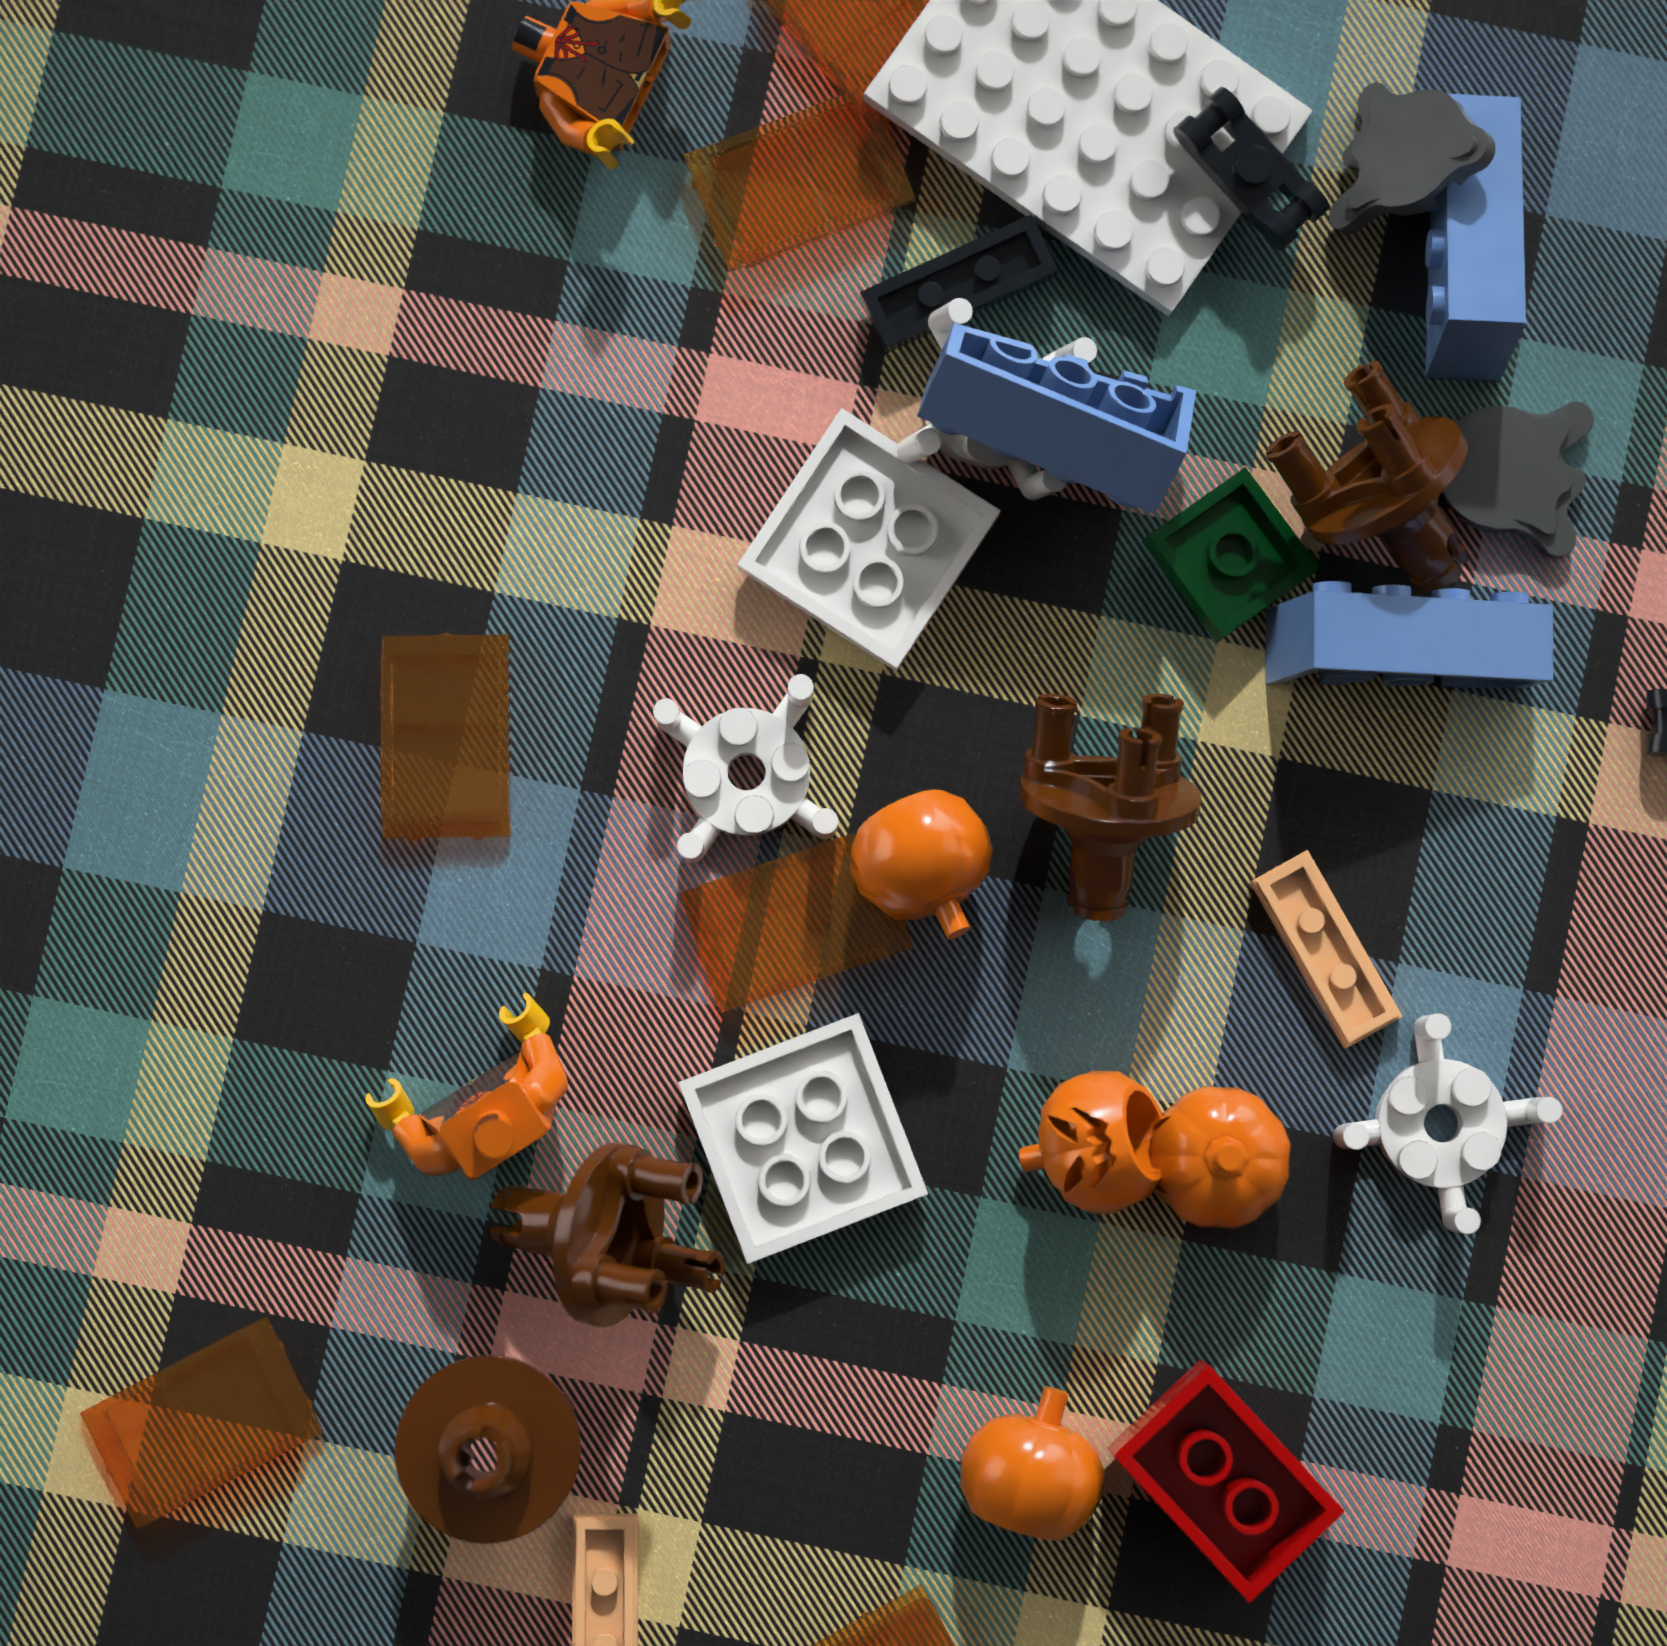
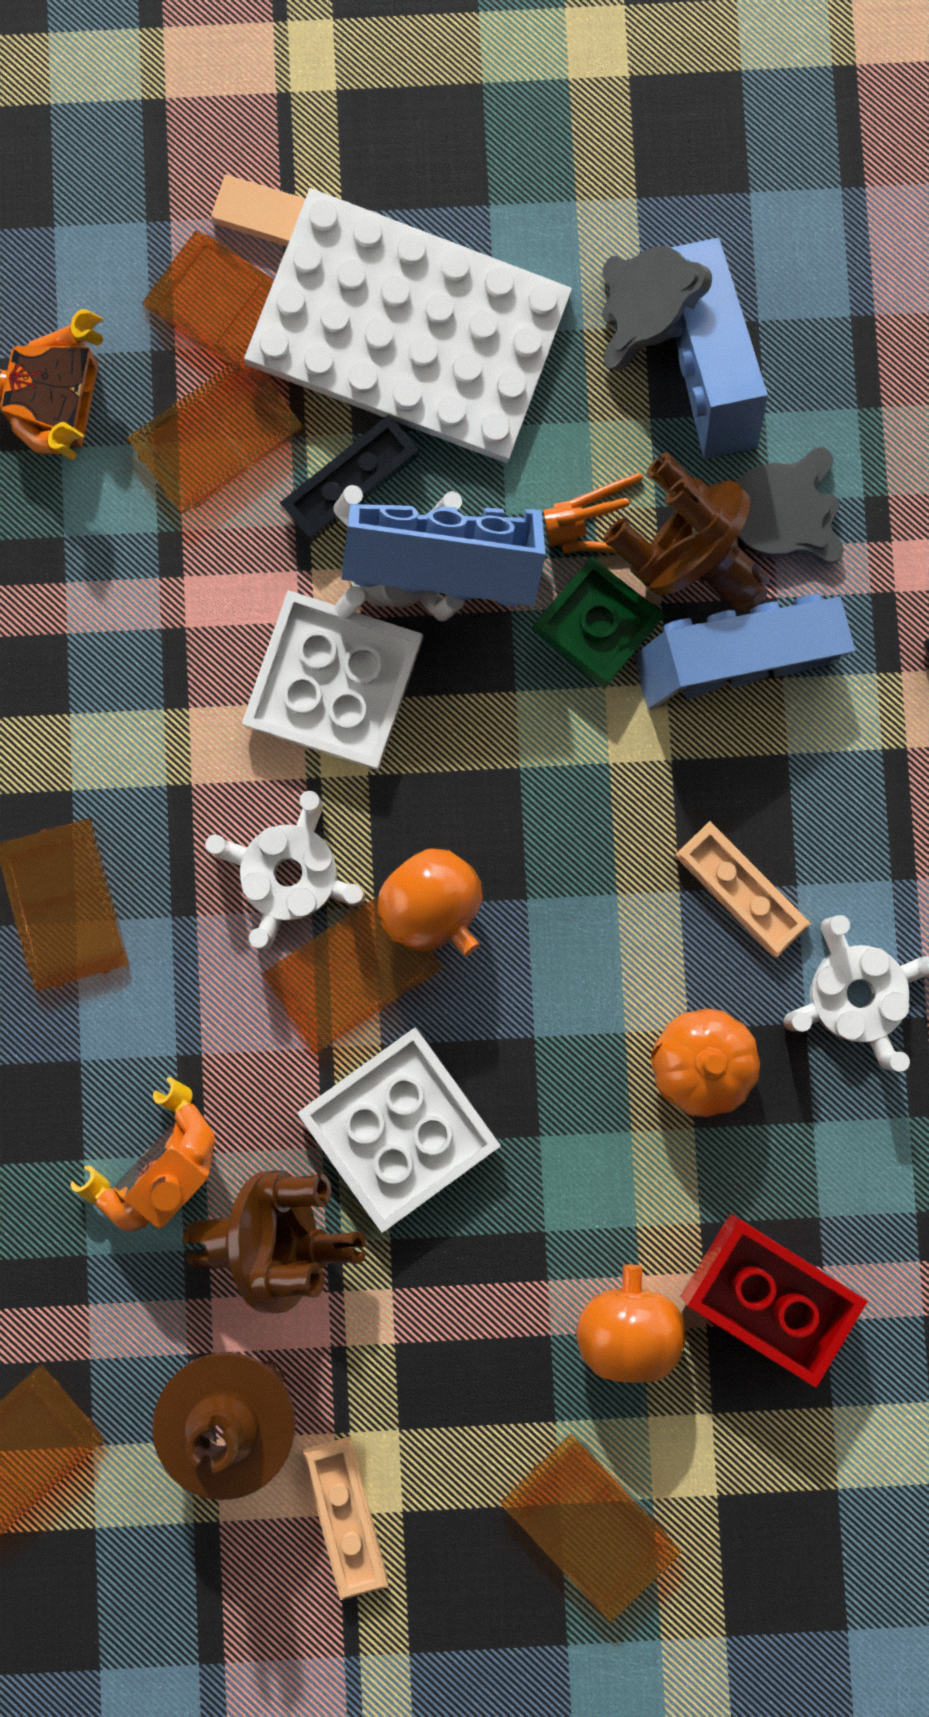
camera: 10 degrees left, 0 degrees up
(1097, 1142) = (614, 1076): orange piece -> none
(1108, 801) = (555, 824): reddish brown piece -> none
(1226, 411) = (566, 519): none -> orange plant
(1250, 169) = (538, 340): black plate -> none

